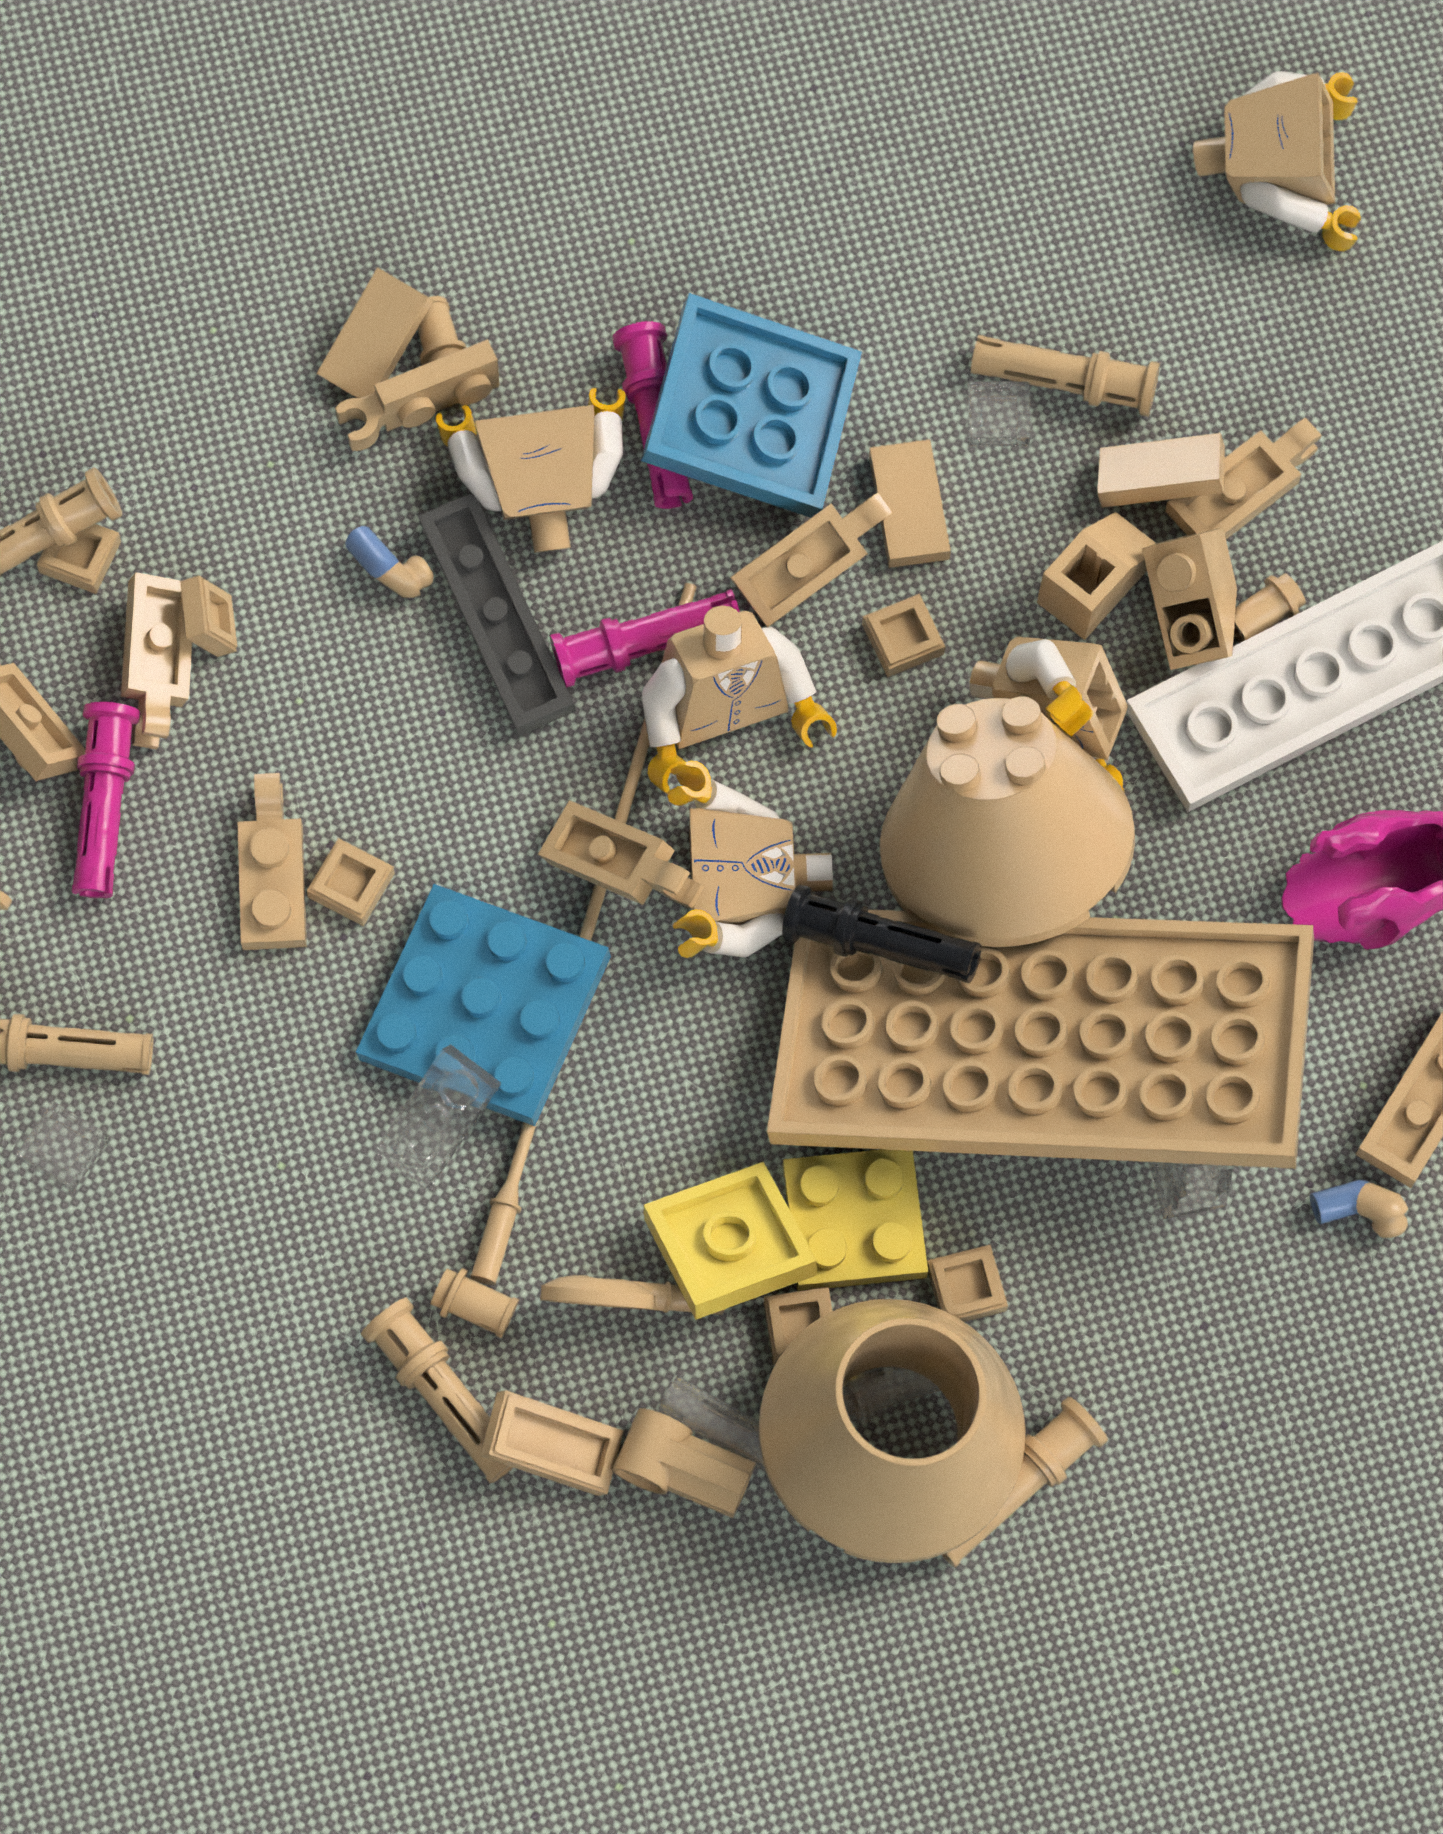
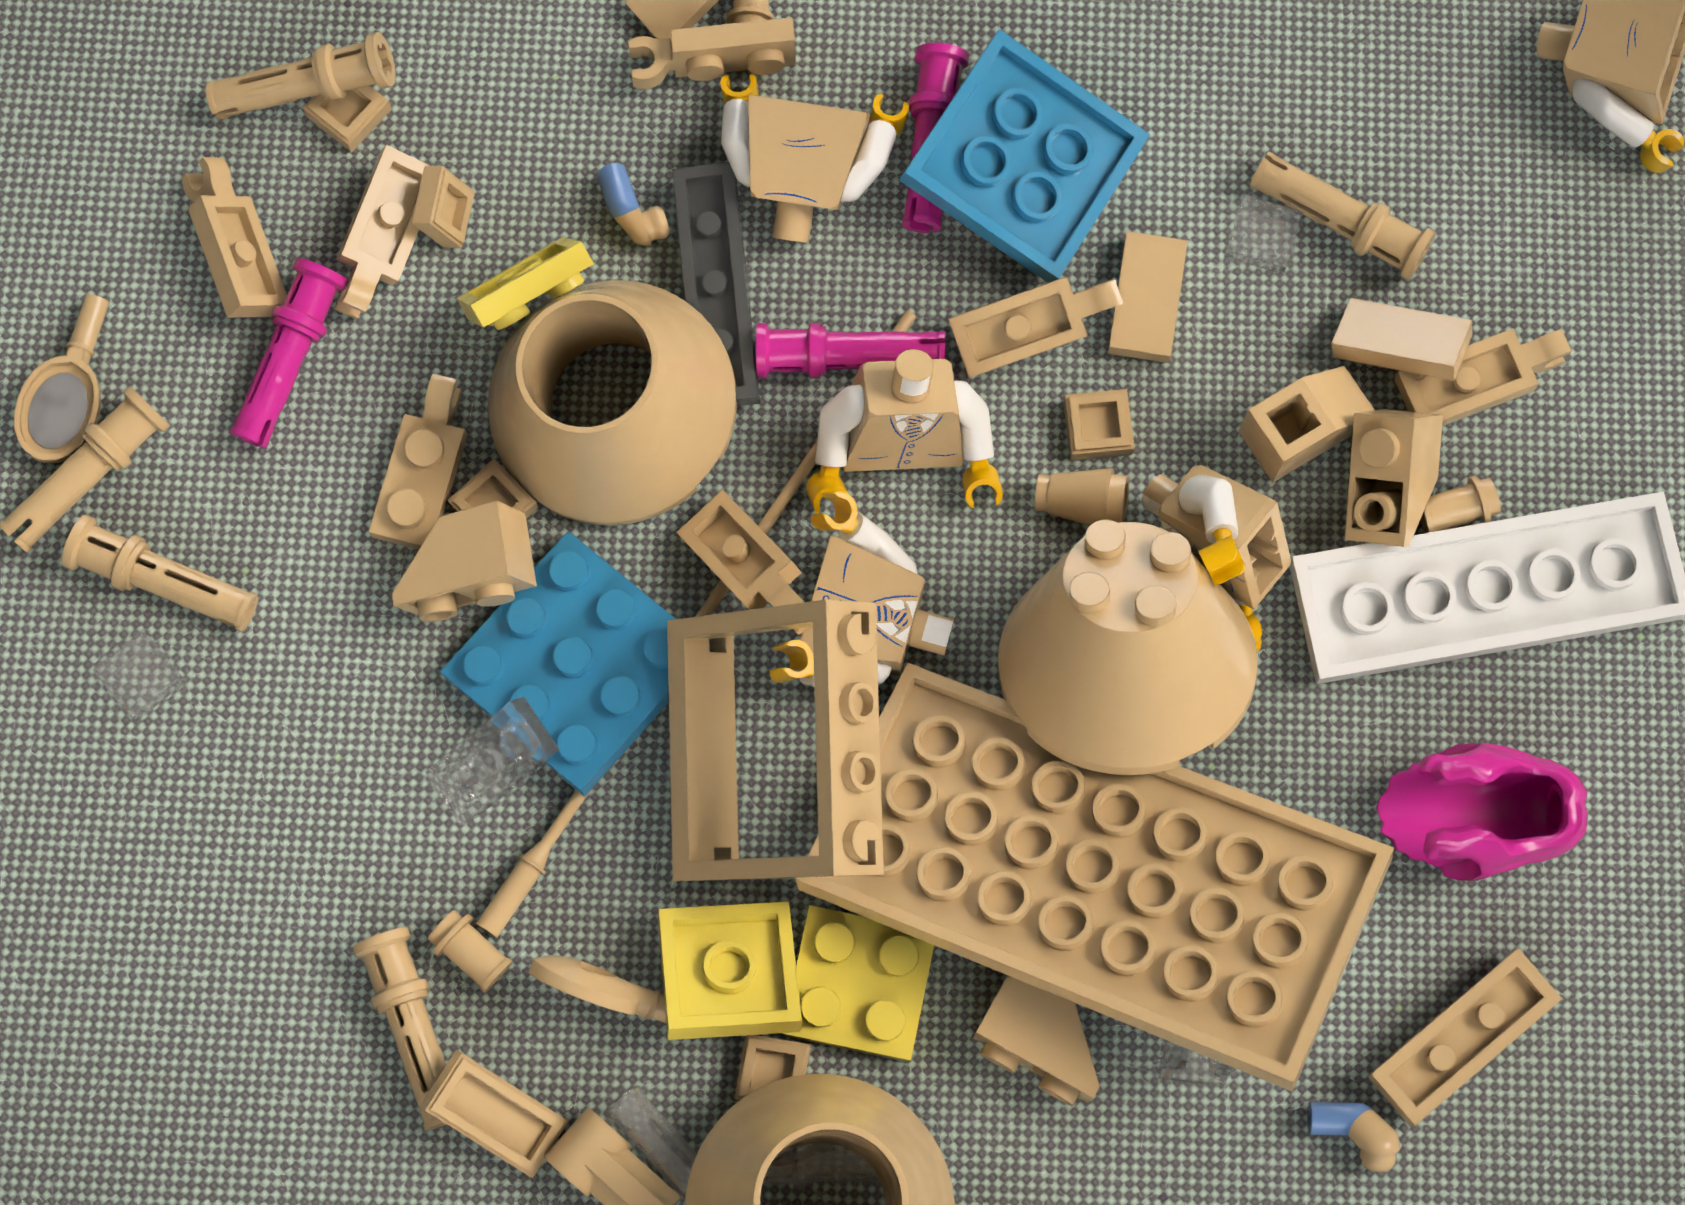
camera: 20 degrees right, 5 degrees up
(304, 675) = (548, 271): none -> light yellow plate
(349, 937) = (468, 560): none -> tan slope
(450, 813) = (651, 452): none -> tan cone
(634, 1032) = (705, 742): none -> tan window
(853, 929) = (946, 704): black pin -> none
(911, 703) = (1083, 495): none -> tan cone
(968, 1284) = (945, 1084): tan tile -> none
(1042, 1208) = (1041, 1035): none -> tan slope

